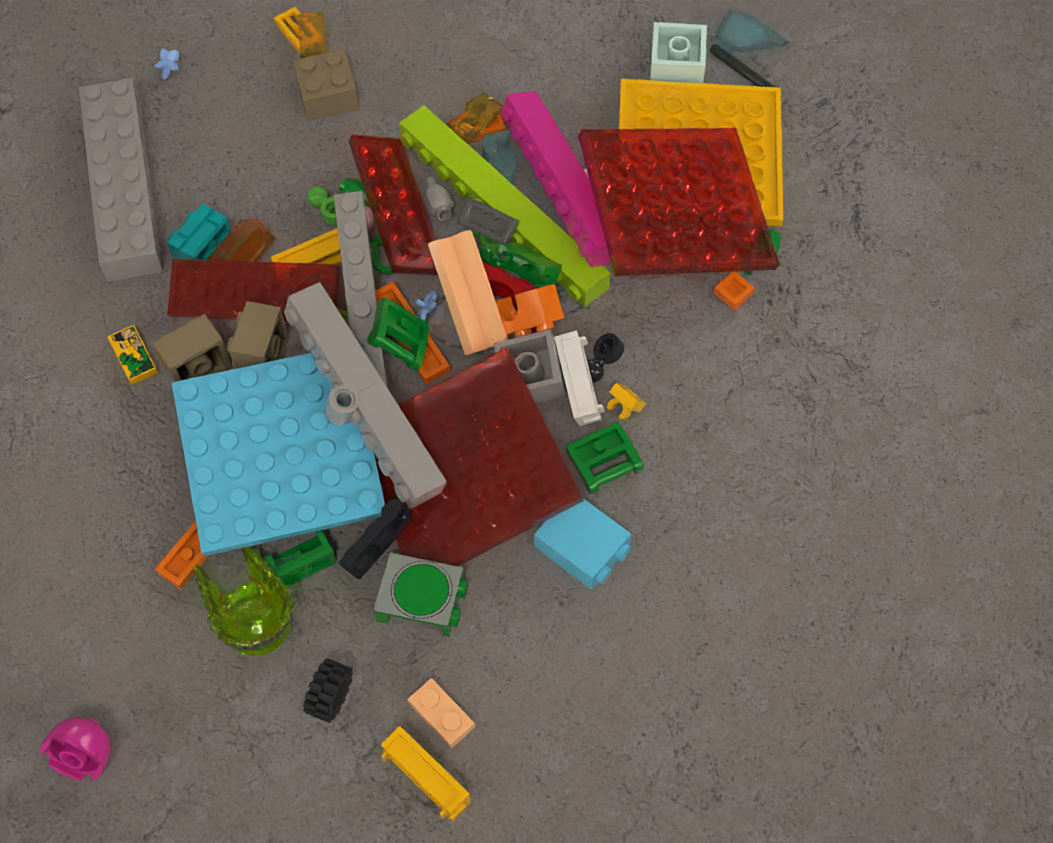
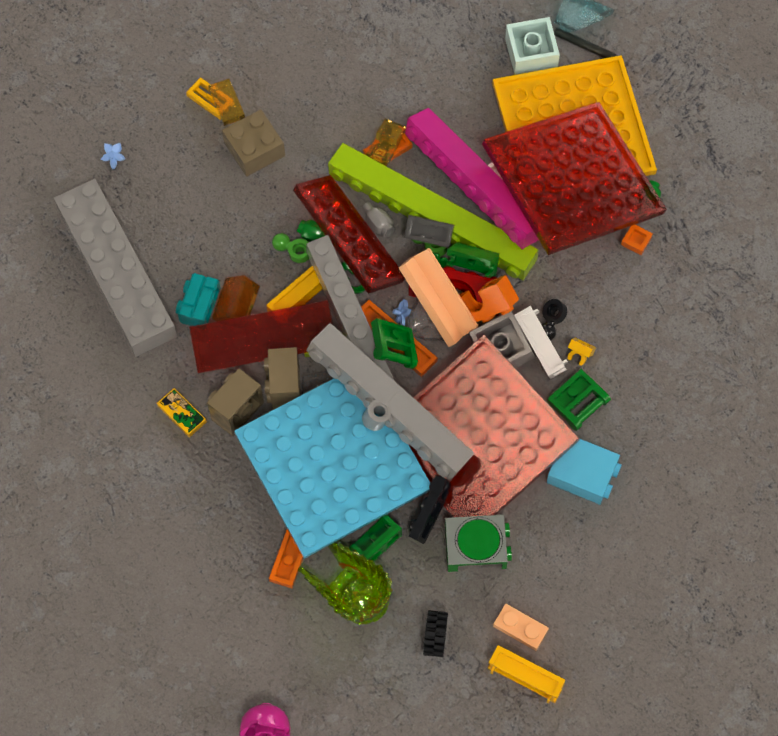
camera: 15 degrees left, 5 degrees up
(496, 152) = (409, 168): clear light blue leg -> none

